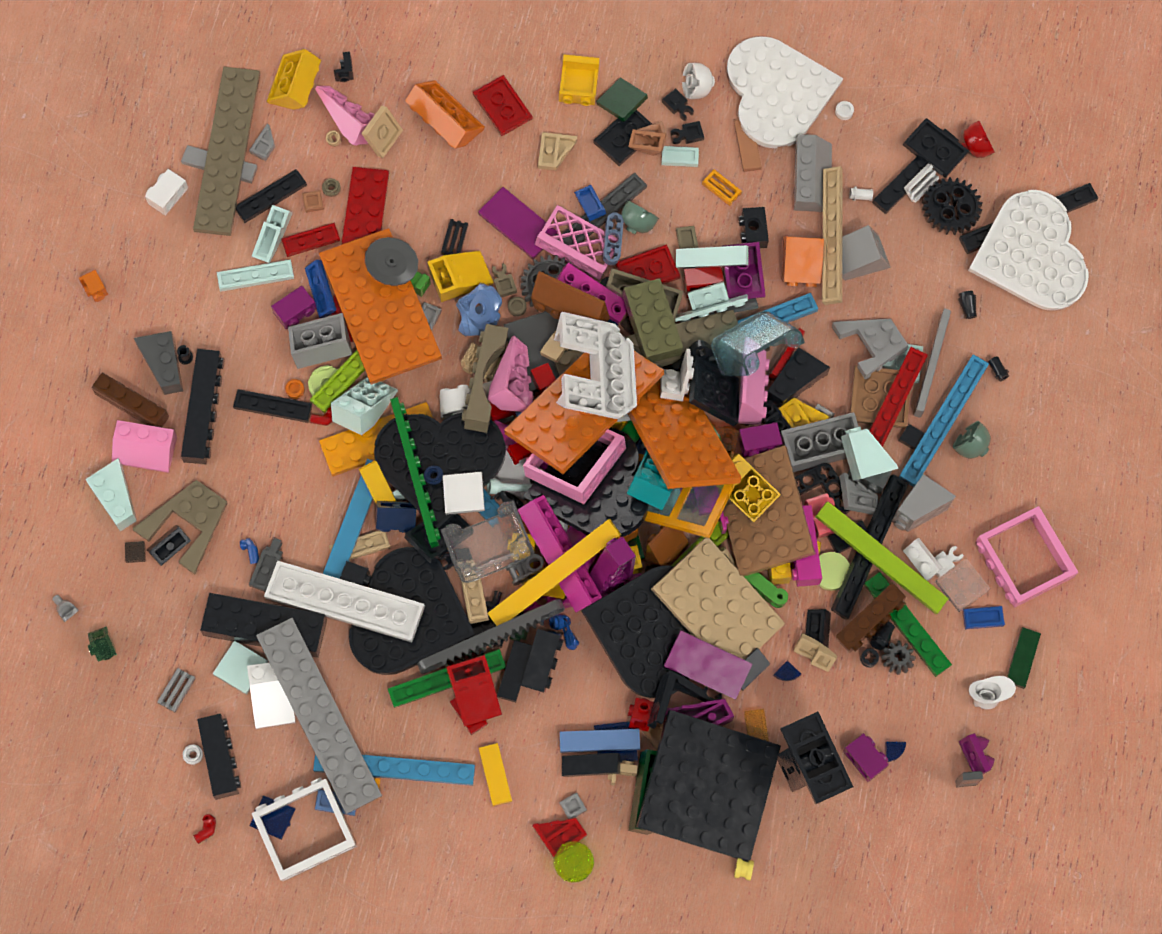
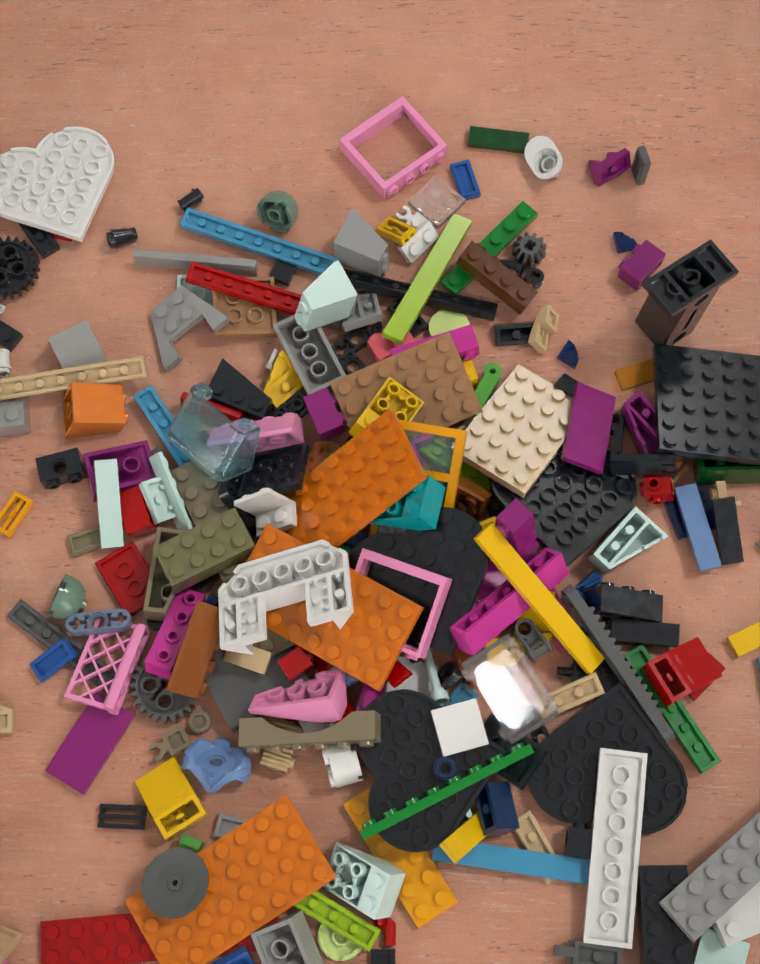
camera: 95 degrees left, 0 degrees up
(598, 674) = (626, 540): none -> light aqua wedge
(928, 546) = (392, 233): none -> yellow tile

